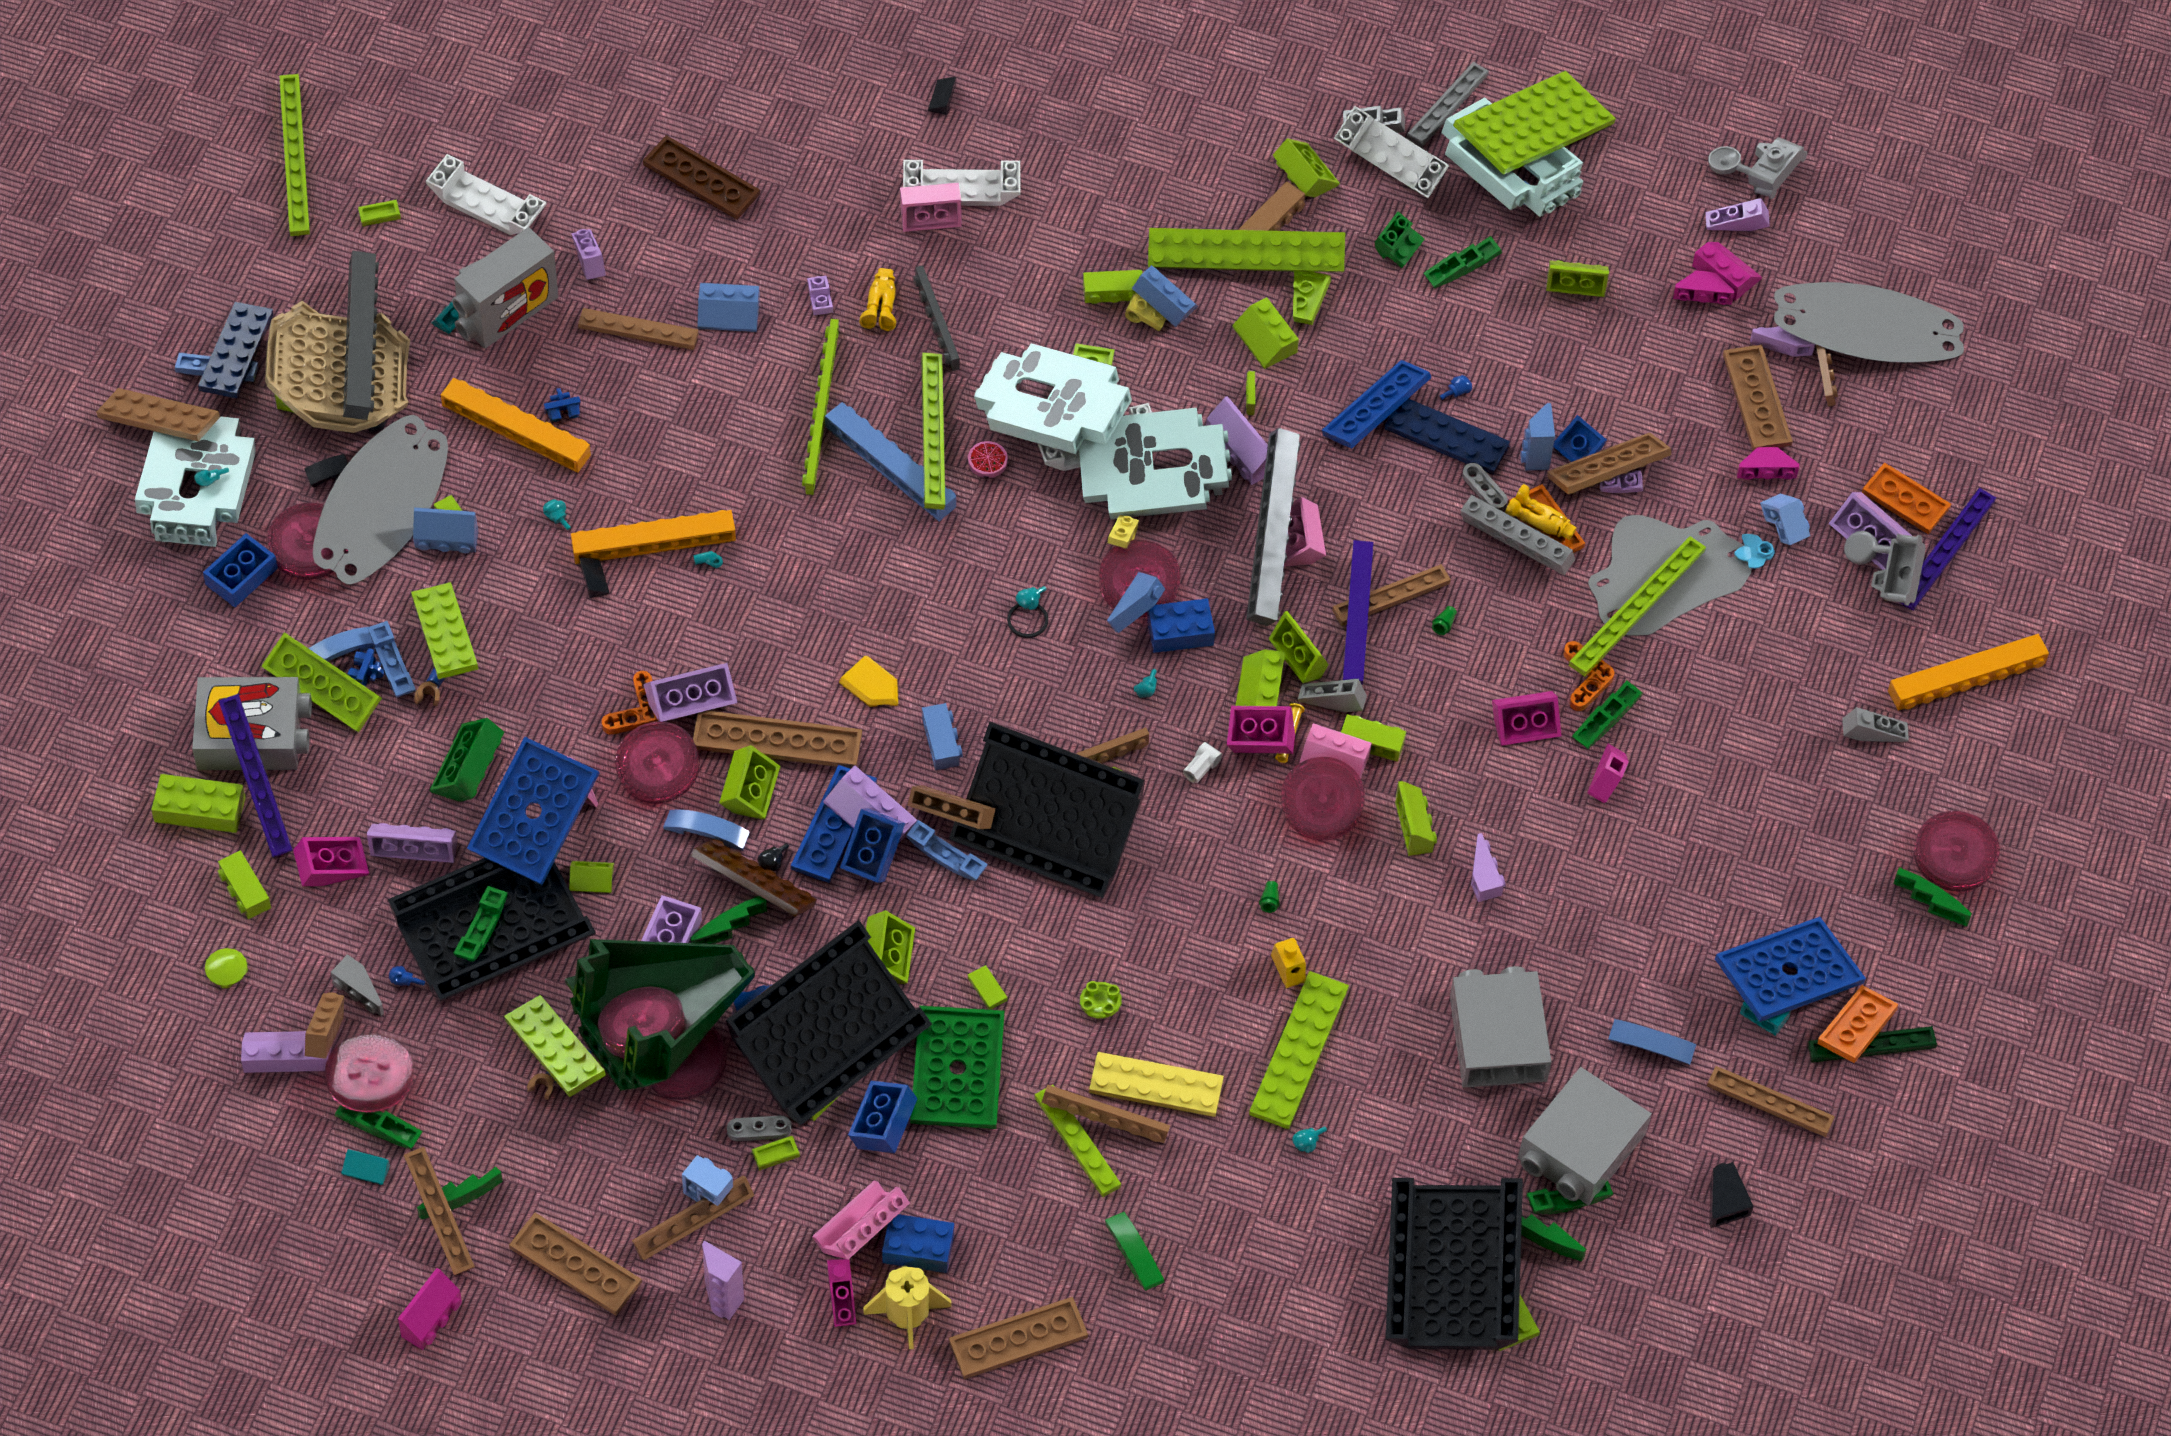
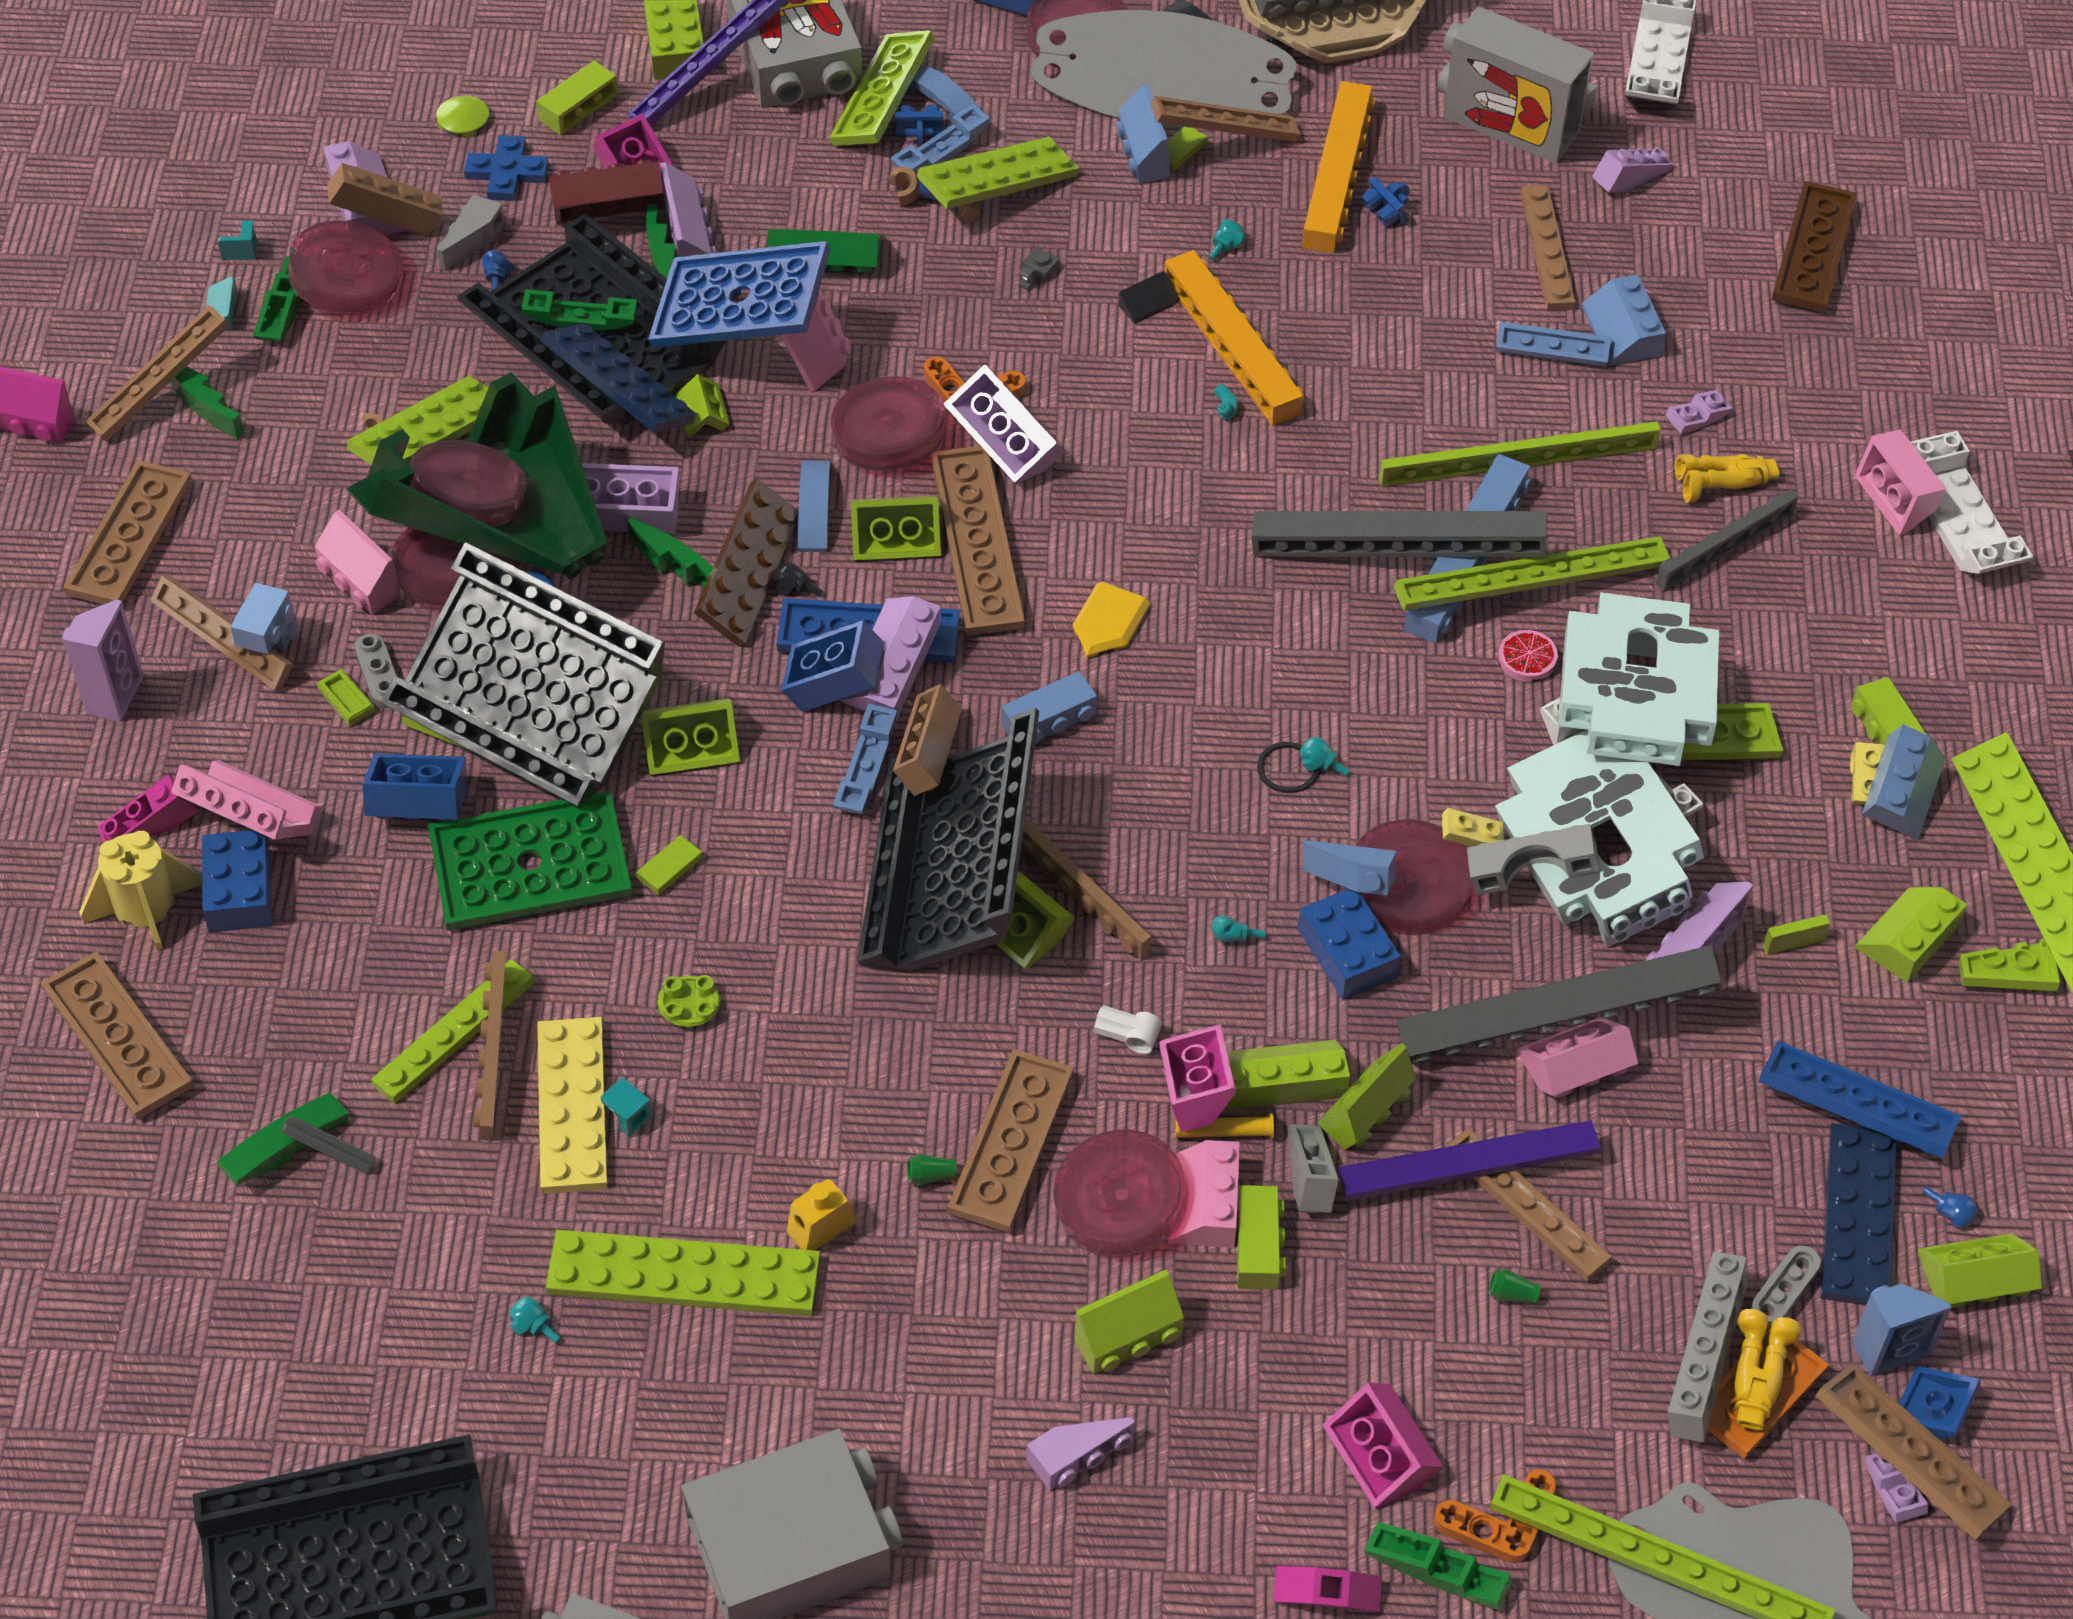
camera: 75 degrees right, 5 degrees down
(294, 950) = (506, 167): none -> blue plate
(306, 1143) = (242, 246): none -> teal panel
(367, 882) = (606, 191): none -> dark red brick
(425, 866) = (660, 251): none -> green slope
(458, 474) = (1224, 119): none -> medium nougat plate
(536, 634) = (1037, 266): none -> dark grey plate
(559, 914) = (618, 377): none -> dark blue plate
(668, 1117) = (356, 564): none -> bright pink slope
(732, 354) = (1553, 344): none -> medium blue plate
(876, 492) = (1399, 534): none -> dark grey brick
(1150, 1223) = (328, 1144): none -> dark grey axle
(1173, 1048) = (628, 1104): none -> teal panel
(1174, 478) = (1497, 862): none -> light grey arch
(1262, 848) = (1010, 1141): none -> medium nougat plate
(1502, 389) = (1981, 1269): none -> lime slope

